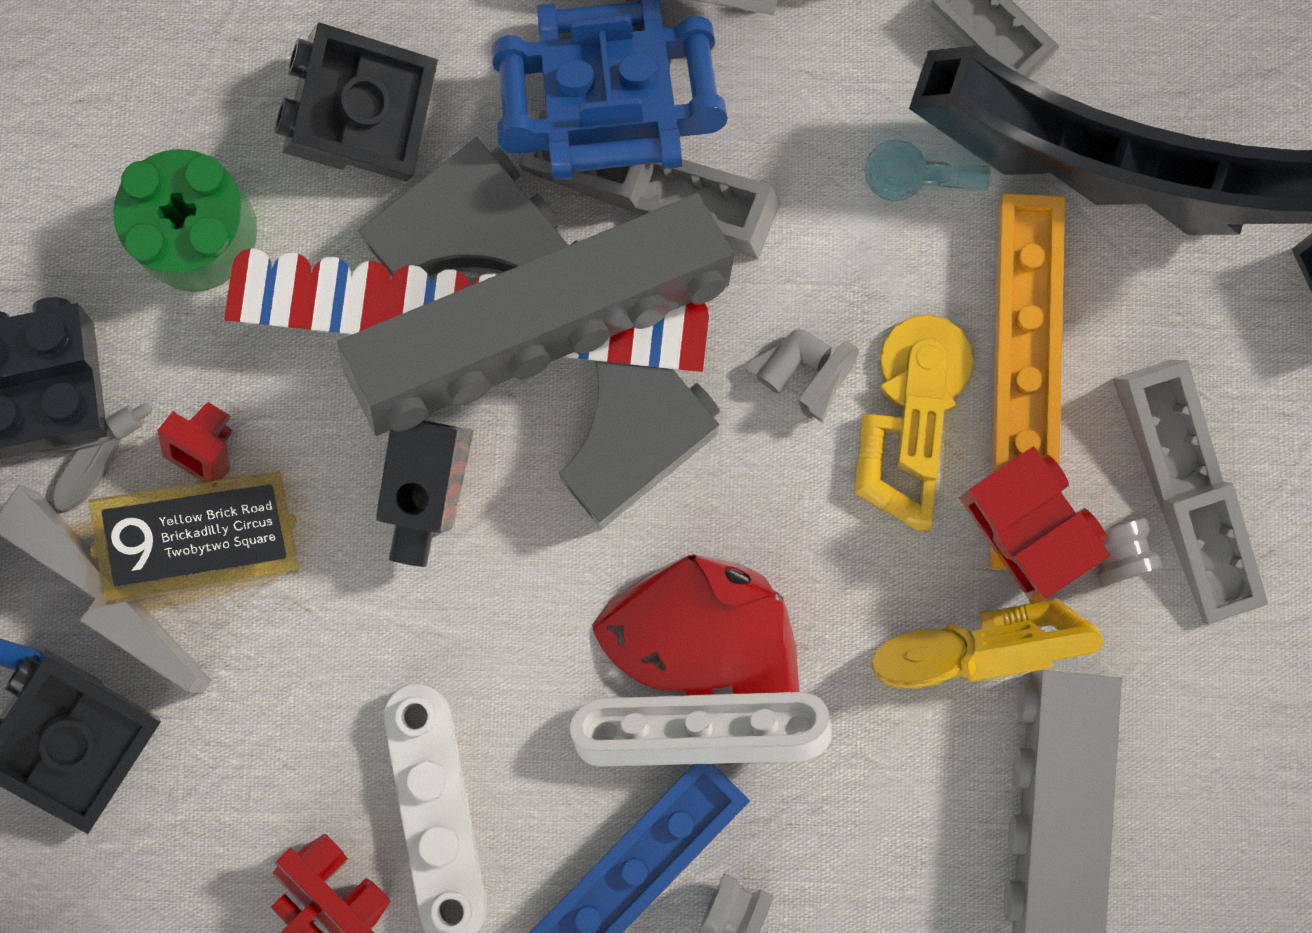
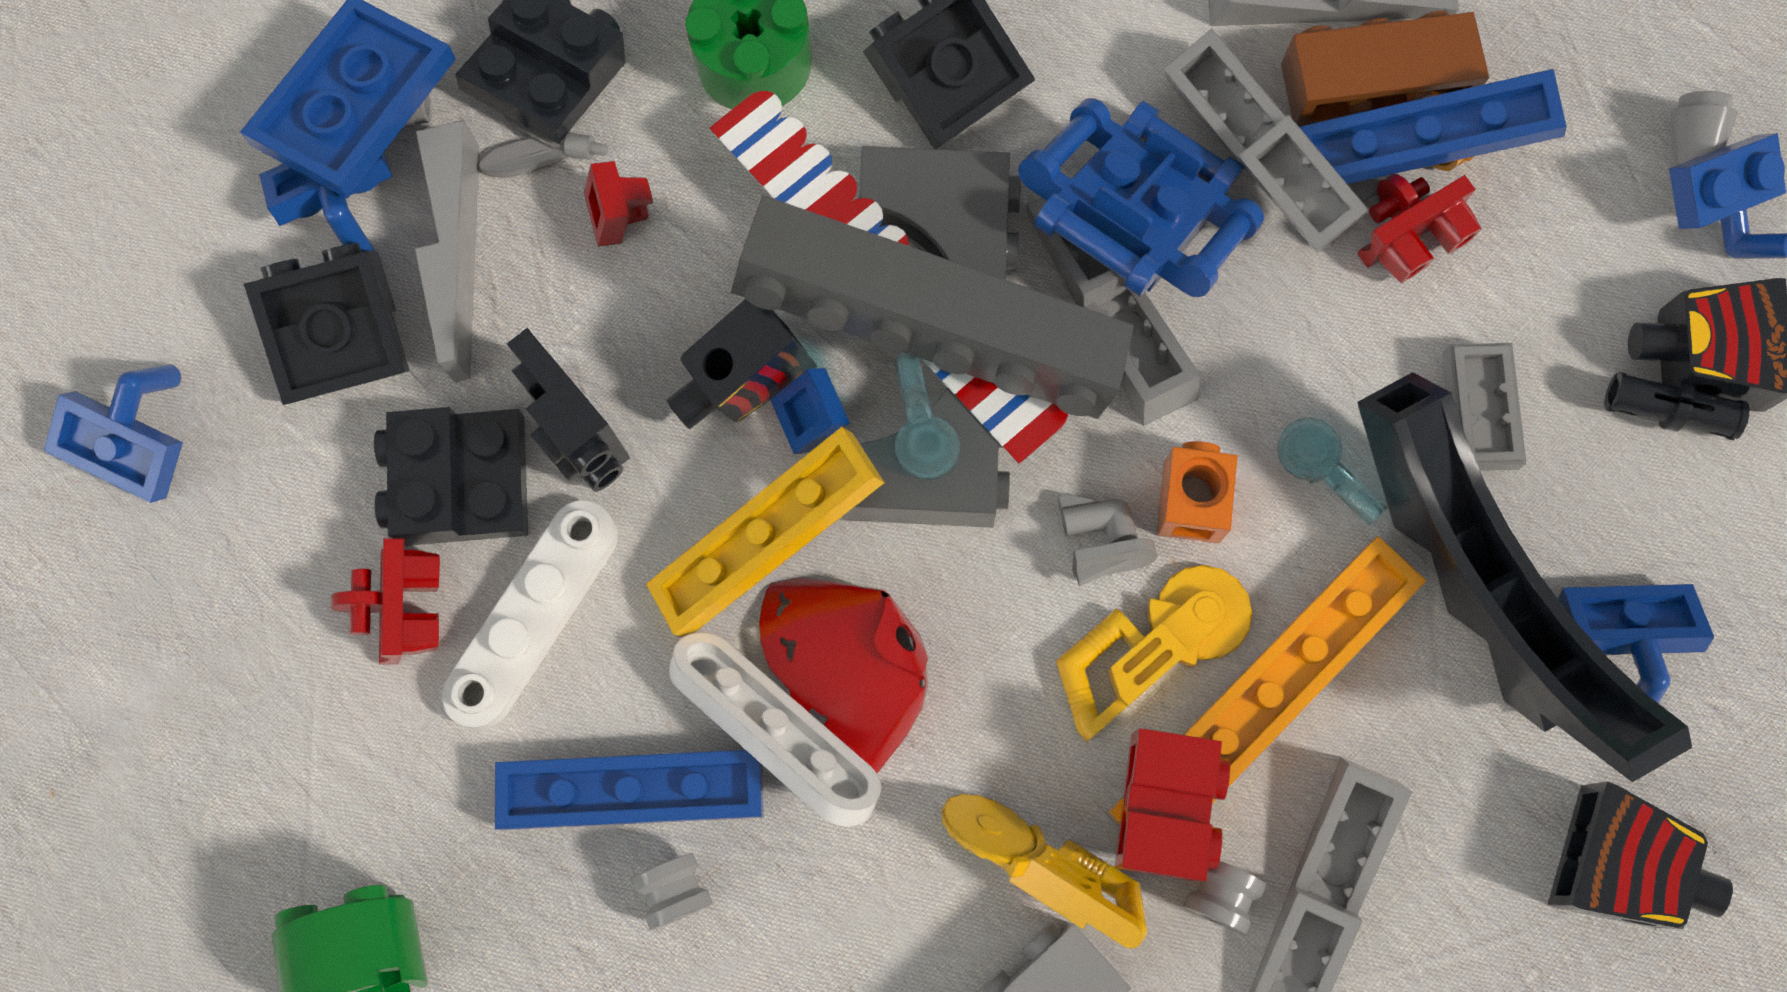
camera: 45 degrees right, 5 degrees down
(192, 537) = (547, 262): piece -> none
(274, 765) = (452, 475): none -> black plate
(342, 646) = (570, 426): none -> black plate
(504, 470) = (809, 410): none -> blue plate
(561, 593) = (764, 533): none -> yellow plate
(623, 419) = (925, 444): none -> clear light blue plate
(846, 303) = (1191, 519): none -> orange brick
(1237, 95) = (1642, 623): none -> blue plate

